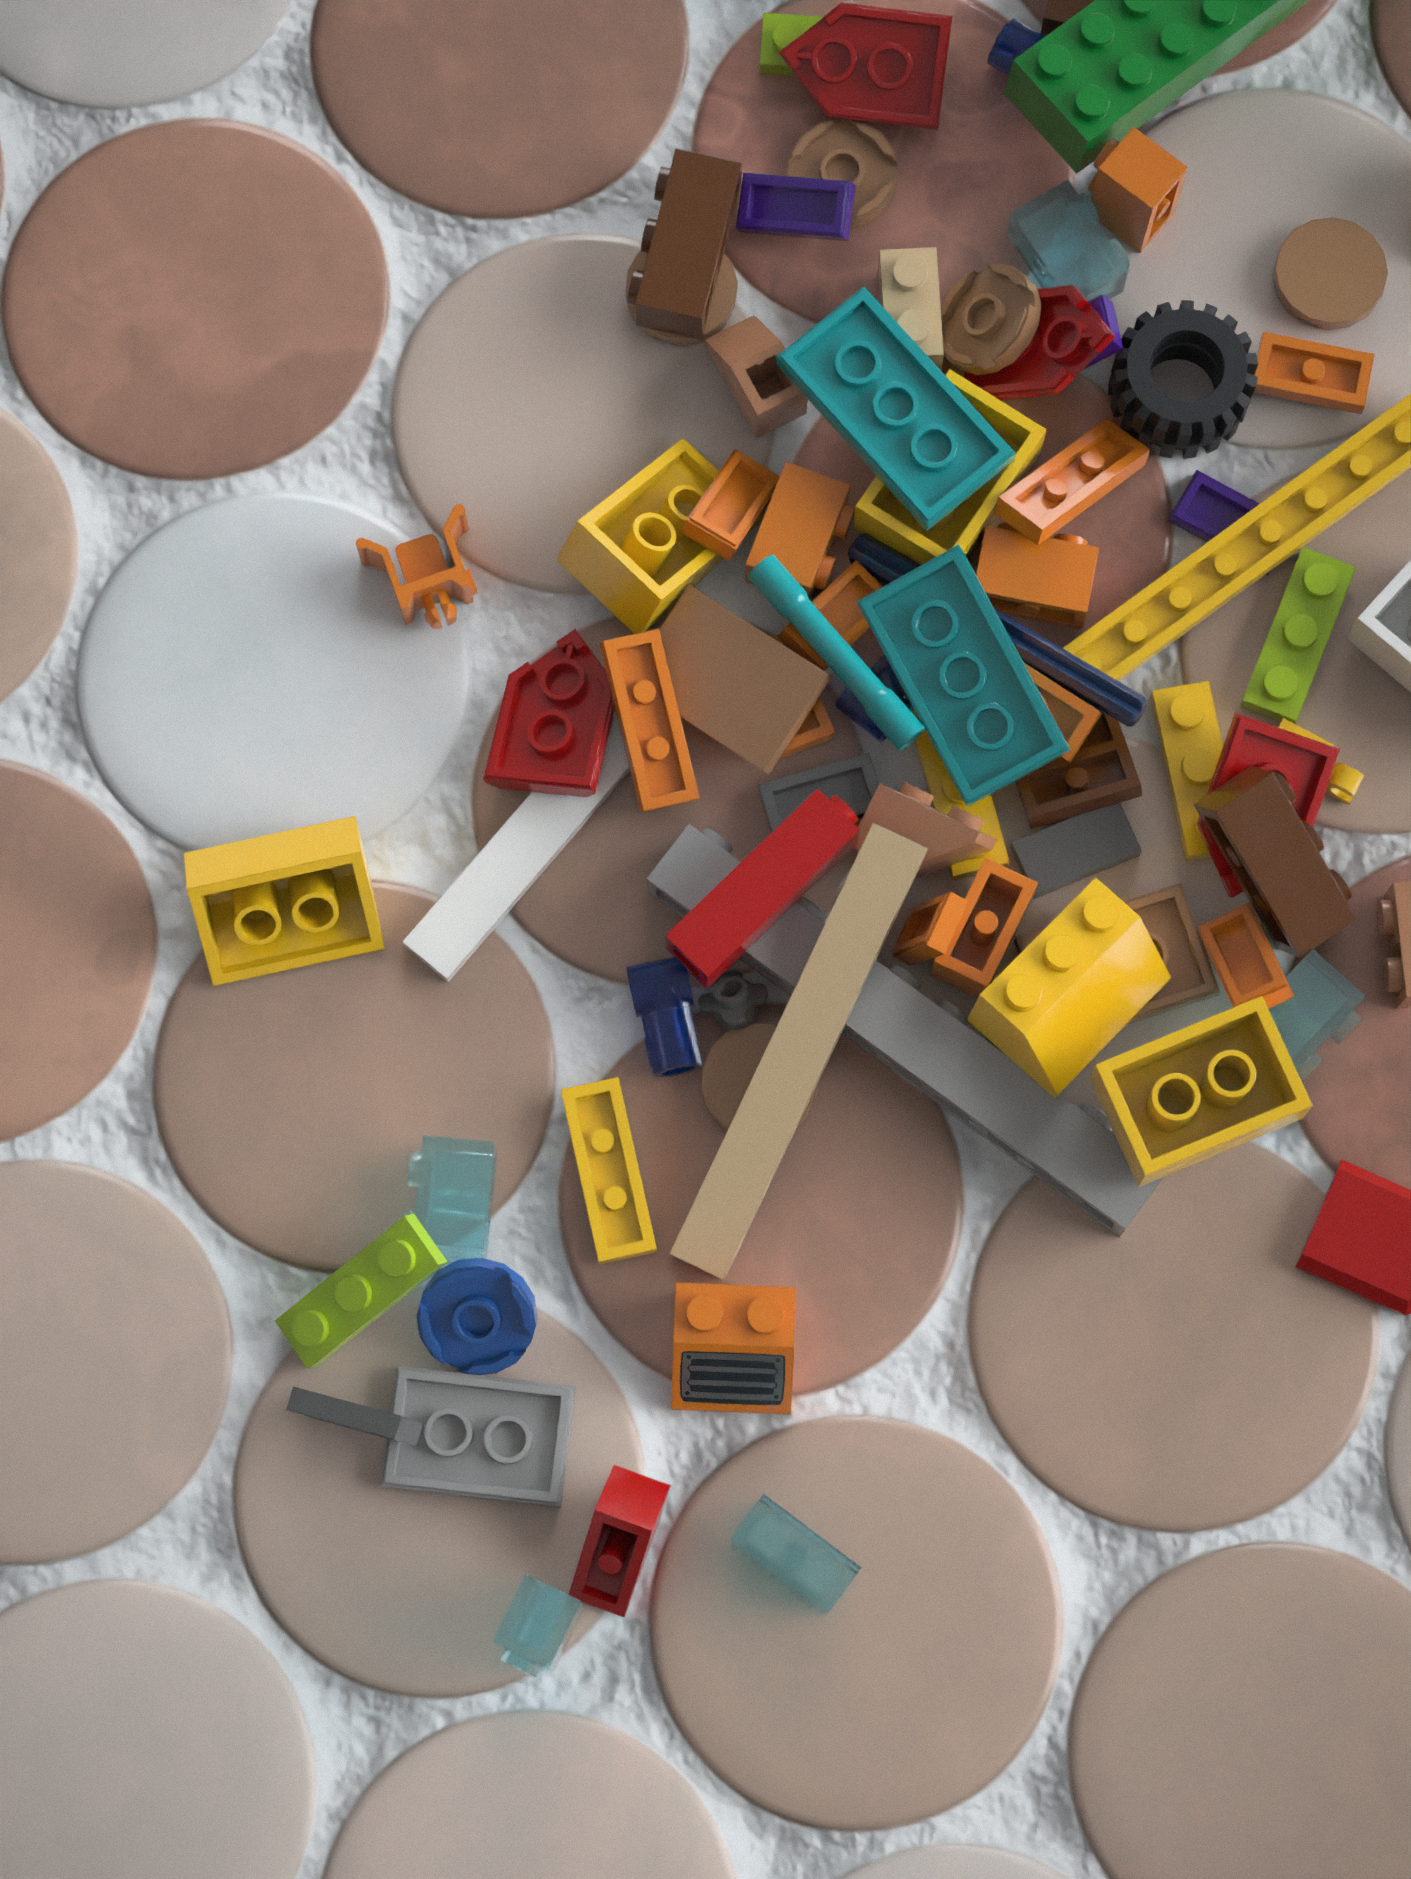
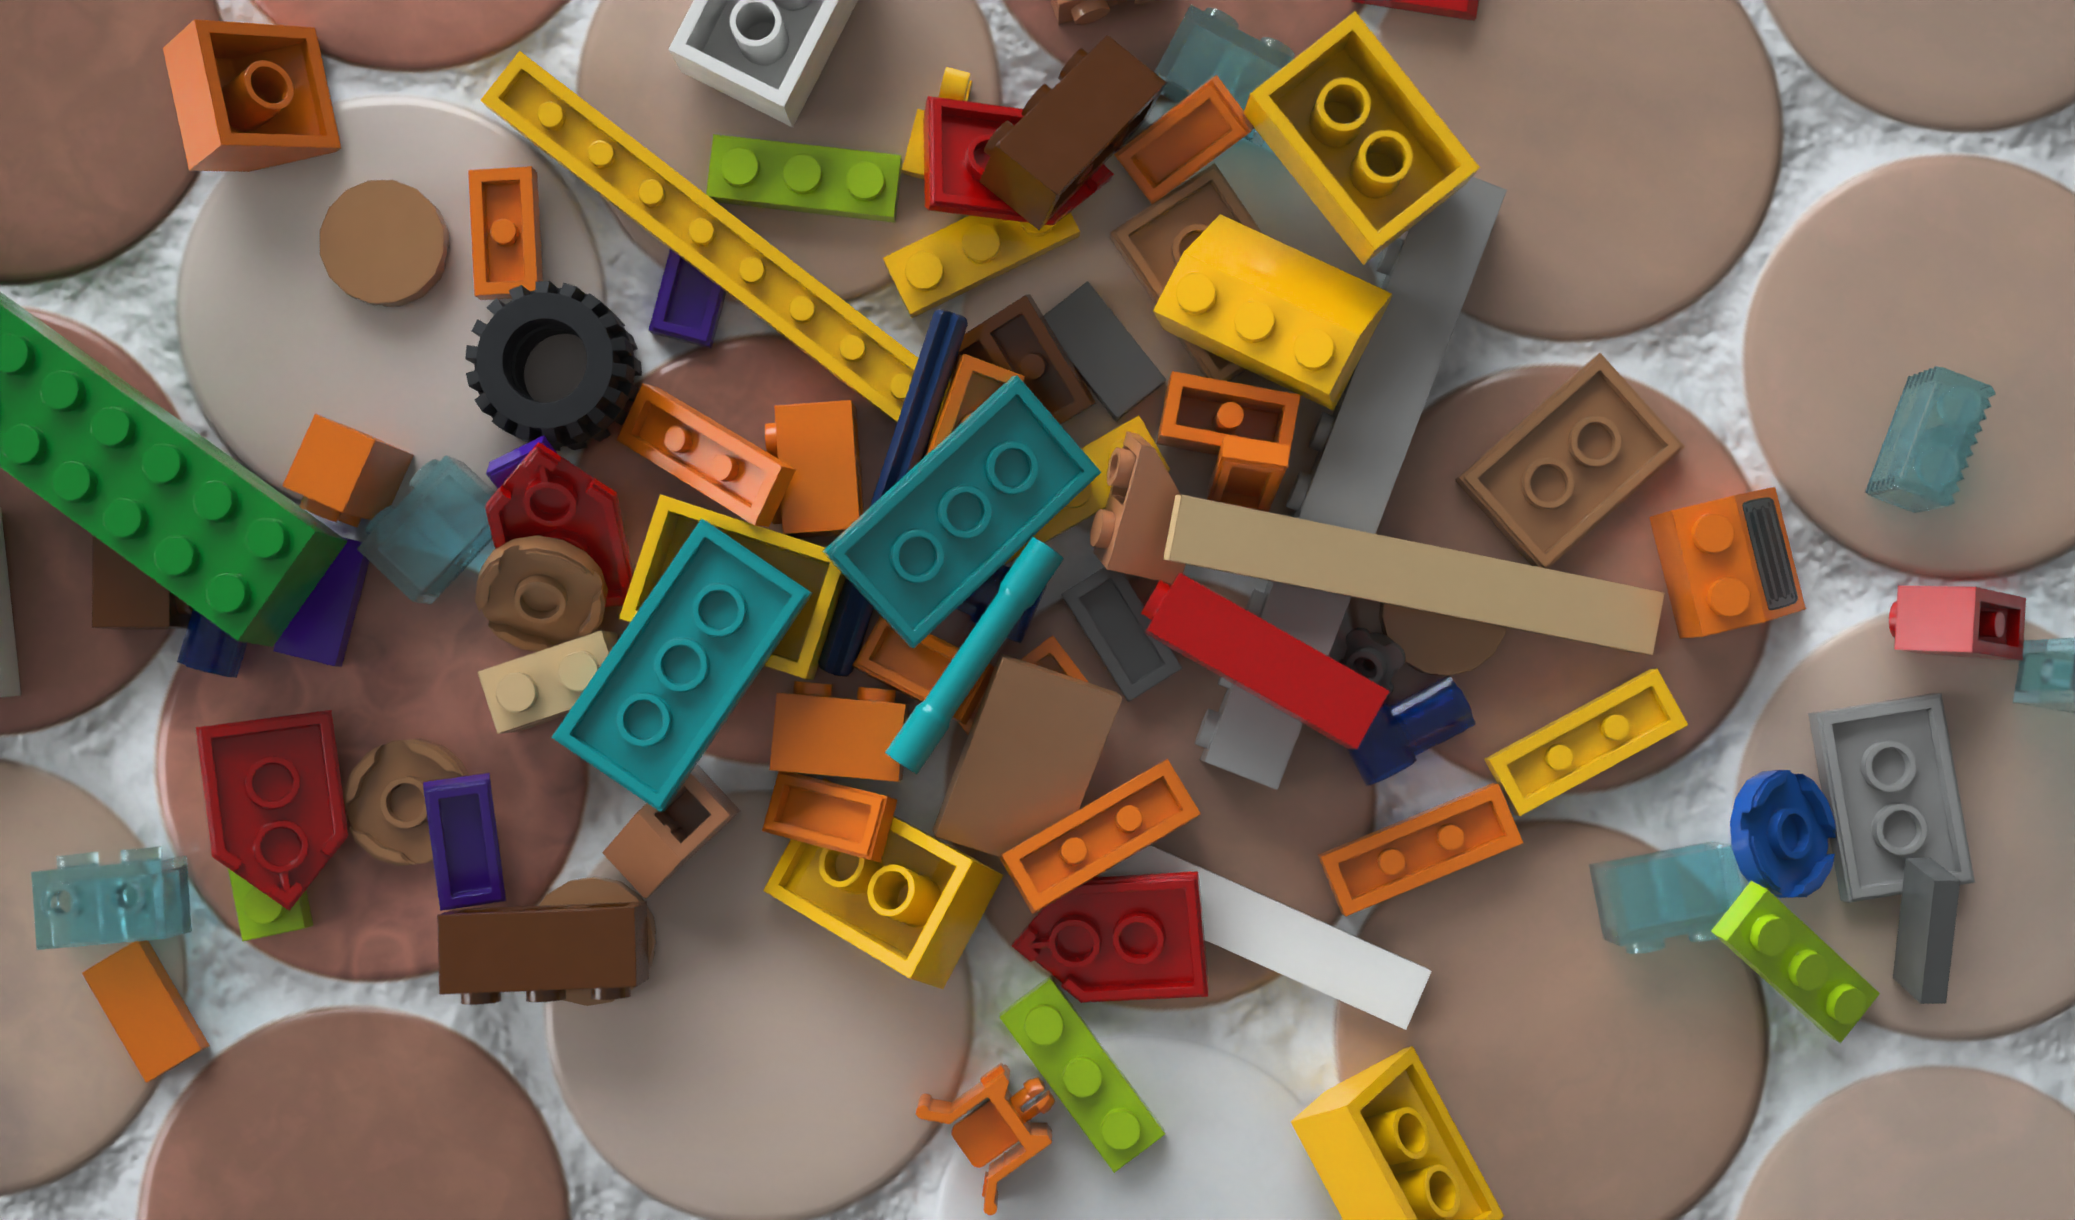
camera: 105 degrees left, 10 degrees up
(447, 660) = (1082, 1074): none -> lime plate
(556, 998) = (1420, 849): none -> orange plate
(863, 1234) = (1570, 463): none -> medium nougat tile
(1020, 147) = (327, 616): none -> dark purple tile

